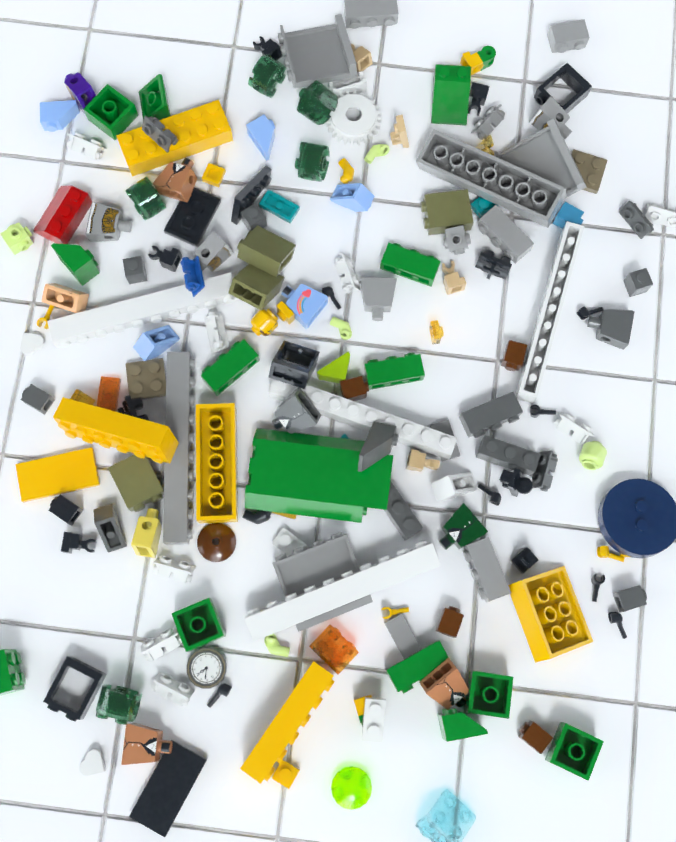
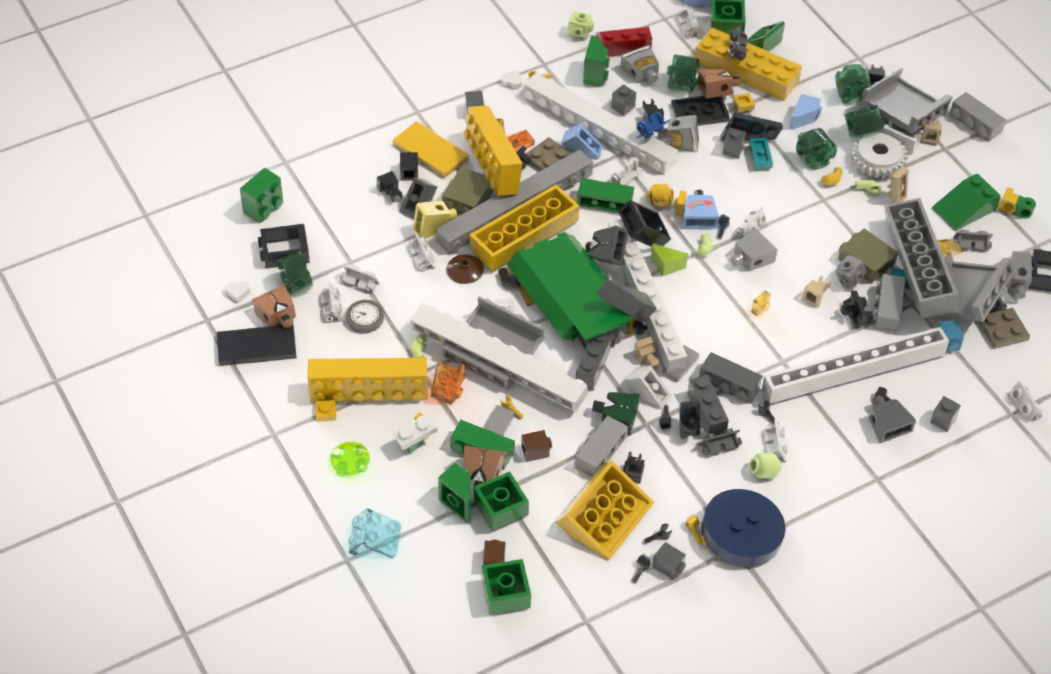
camera: 55 degrees right, 25 degrees down
(65, 297) = (563, 72): light nougat brick -> none
(198, 624) = (393, 286): green brick -> none
(224, 689) = (357, 335): black hand -> none
(255, 286) = (682, 168): olive brick -> none
(266, 250) = (716, 161): olive brick -> none
(353, 196) = (816, 191): light blue slope -> none
(354, 388) = (664, 278): reddish brown brick -> none
(394, 371) = (702, 295): green brick -> none
(410, 264) = (799, 256): green brick -> none
(479, 93) = (987, 221): black piece -> none
(514, 355) = (793, 359): reddish brown brick -> none
(636, 221) = (1002, 379): dark grey hinge -> none

